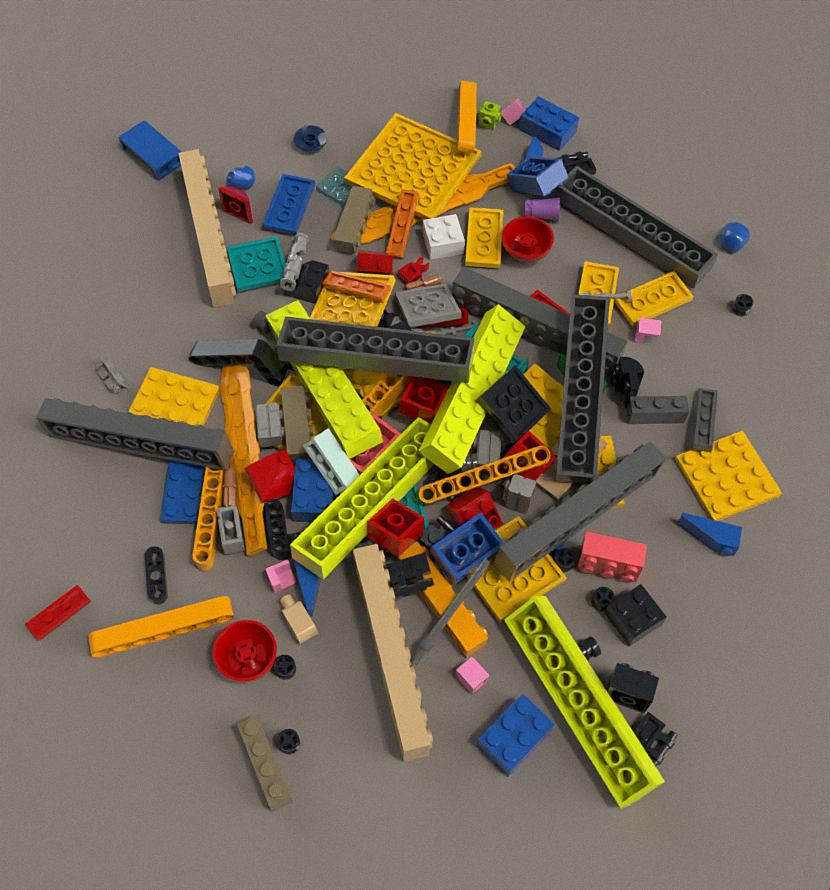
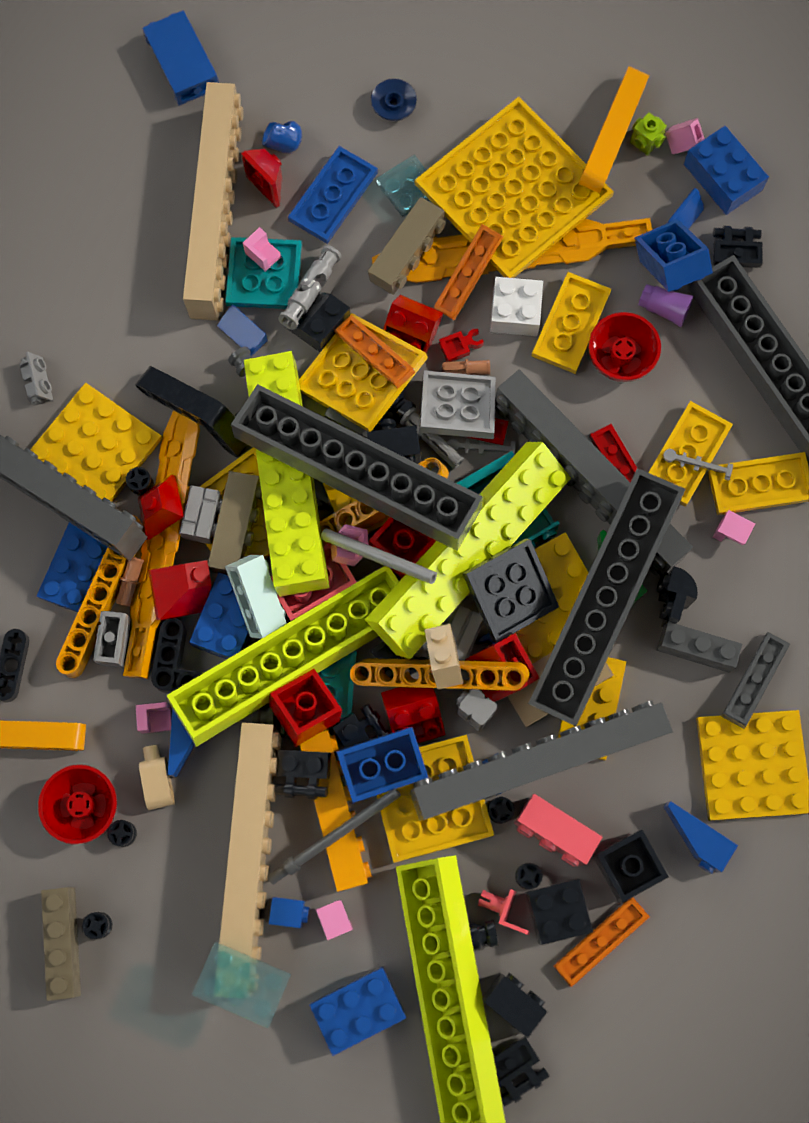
camera: 20 degrees right, 15 degrees up
(213, 415) = (136, 476): none -> black wheel
(238, 427) = (160, 507): none -> red slope
(251, 249) = (261, 250): none -> bright pink panel
(254, 302) = (242, 330): none -> blue slope
(387, 409) = (344, 556): none -> bright pink panel
(413, 404) = (379, 556): none -> light grey piece
(423, 732) = (241, 984): none -> clear light blue plate
(435, 682) = (288, 912): none -> blue brick
(486, 454) = (443, 656): none -> tan brick
(592, 625) = (501, 906): none -> coral bracket
(672, 566) = (630, 866): none -> black brick
(673, 628) = (601, 941): none -> orange tile

